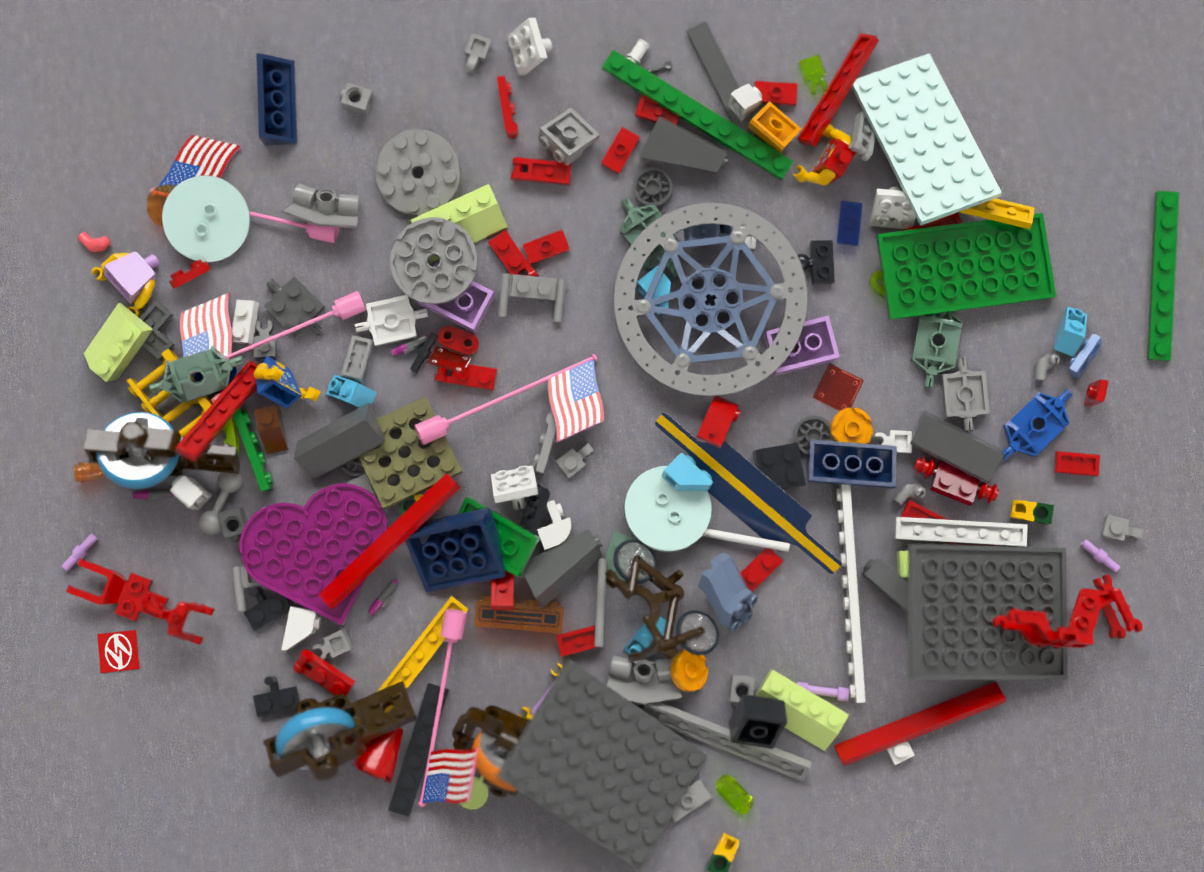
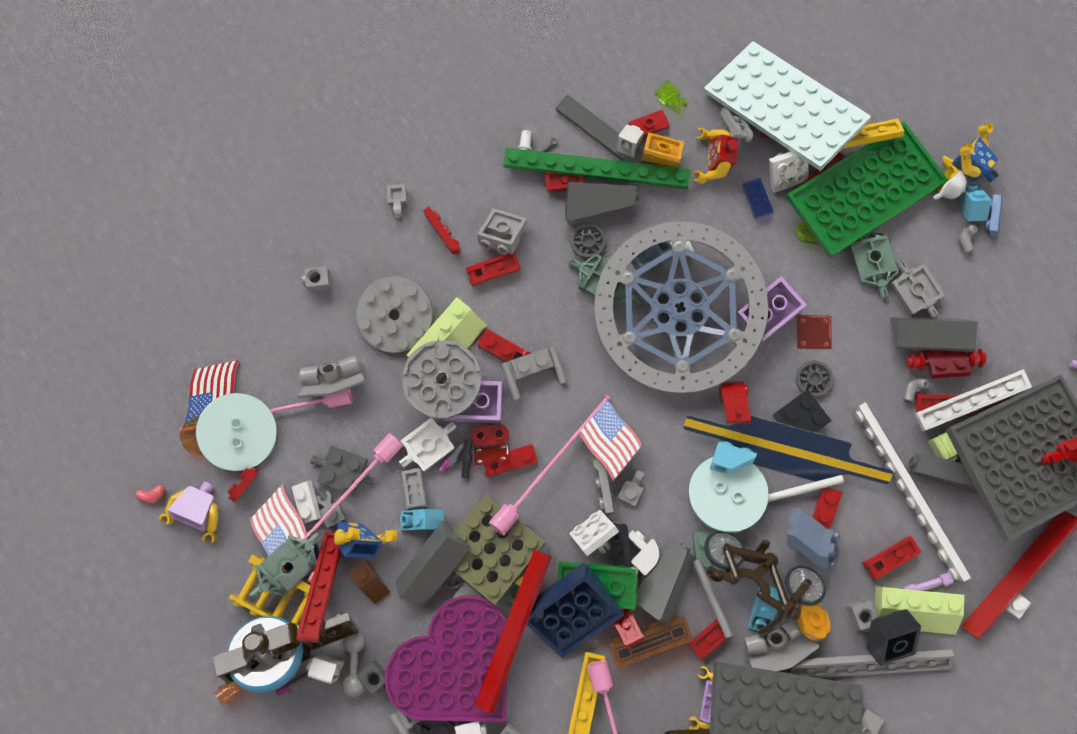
camera: 20 degrees left, 5 degrees down
(116, 343) = (206, 570): yellowish green slope -> none
(156, 317) = (227, 544): dark grey plate -> none
(232, 435) = (338, 602): lime plate -> none
(256, 458) = (355, 598): green plate -> none
(276, 100) = (252, 310): dark blue slope -> none
(383, 598) = (529, 680): piece -> none
(528, 46) = (438, 172): white plate -> none
(546, 247) = (526, 327): red plate -> none
(620, 150) = (548, 224): red plate -> none
(662, 289) = (637, 317): medium azure slope -> none
(734, 794) = (902, 708): clear neon green plate -> none
(800, 647) = (892, 557): none -> red plate
(820, 261) = (750, 237): black plate -> none
(838, 89) = (696, 100): red tile -> none
(851, 426) = (842, 358): light orange tile -> none
(852, 464) = (858, 386): dark blue slope -> none
(897, 438) = (882, 351): white plate -> none
(1020, 431) = (975, 297): blue plate -> none
(1032, 511) = (1020, 357): leg -> none
(1062, 301) = (956, 183): none -> white hair
(1076, 463) = (1033, 303): red plate -> none
(1096, 392) = (1021, 239): red plate -> none
(1098, 287) = (976, 157): none -> torso
(1163, 276) = (1020, 128): green plate -> none

